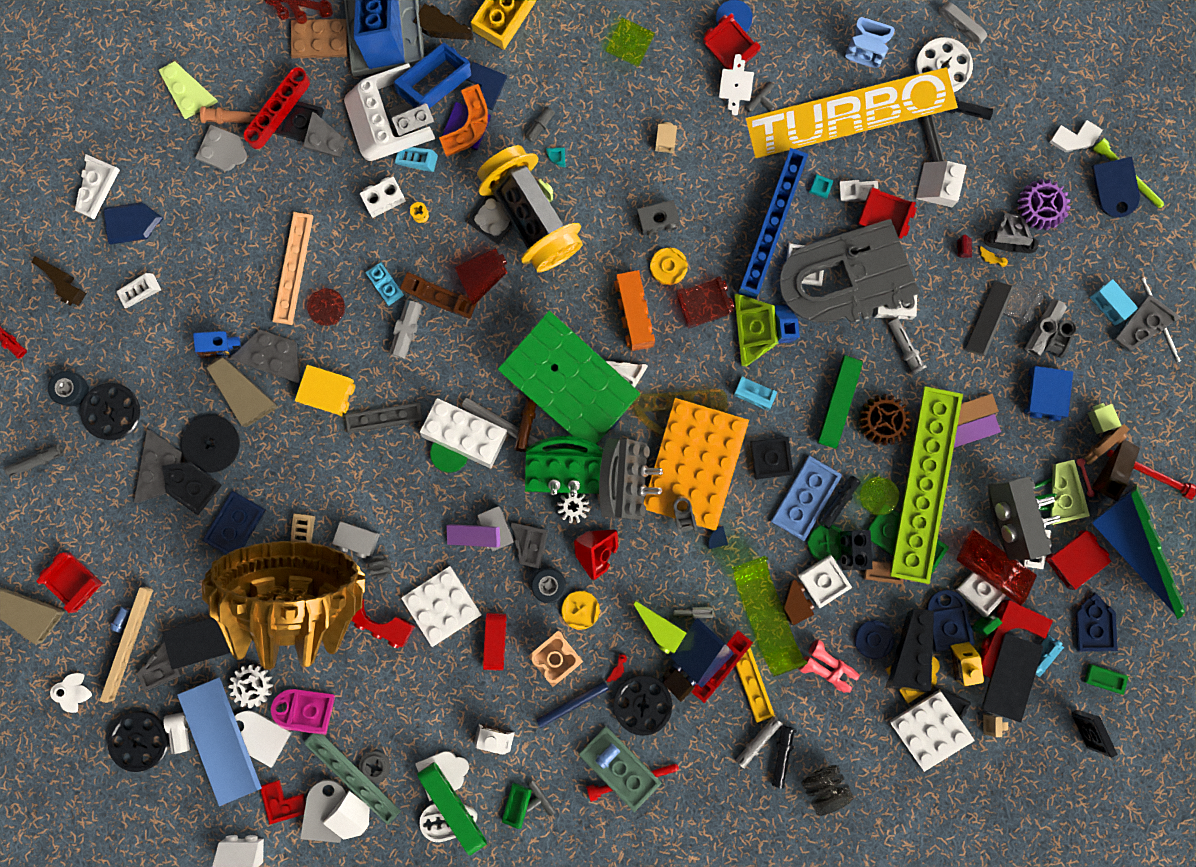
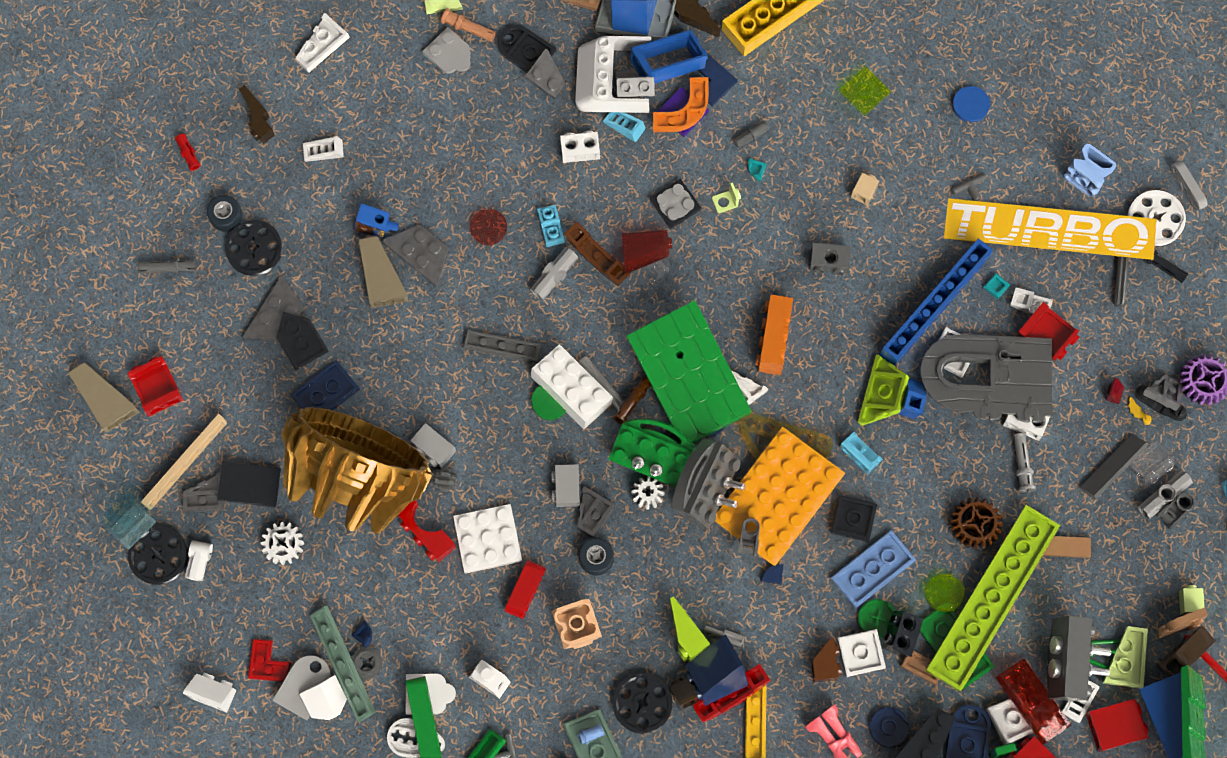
camera: 20 degrees right, 10 degrees down
(73, 692) = (118, 487): white plate -> none
(98, 724) = (129, 523): none -> clear light blue slope
(120, 620) = (187, 438): medium blue pin -> none
(130, 222) = (340, 87): dark blue tile -> none
(219, 741) = (233, 583): medium blue arch -> none
(225, 440) = (348, 310): black piece -> none
(262, 736) = (271, 594): white tile -> none
(277, 99) = (519, 26): red beam -> none
(292, 268) = (471, 181): light nougat tile -> none
(295, 525) = (382, 412): tan slope -> none
(304, 712) = (322, 584): dark pink tile -> none
(325, 390) = (458, 300): yellow panel -> none
(361, 741) = (363, 634): none -> dark blue tile
(418, 217) = (611, 168): yellow bush -> none
(473, 535) = (544, 482): medium lavender tile -> none
(528, 209) = (710, 204): brick -> none
(572, 704) = (575, 677): dark blue piece -> none
(580, 610) = (617, 592): yellow tile -> none
(594, 550) = (652, 540): red slope -> none
(619, 669) = (631, 662): red piece -> none
(664, 270) = (826, 311): yellow tile -> none
(705, 302) = (844, 352): clear red panel -> none
(729, 40) = (958, 126): red panel -> none
(730, 78) = (953, 156): piece -> none
(767, 616) = (793, 661): clear neon green windscreen -> none
(840, 402) = (939, 490): green beam -> none
(851, 484) = (911, 579): black pin -> none
(941, 182) = (1112, 323): white slope -> none
(976, 430) = (1061, 567): medium lavender tile -> none
(1049, 393) = (1145, 557): blue panel -> none
(1081, 462) = (1154, 636): coral hinge -> none

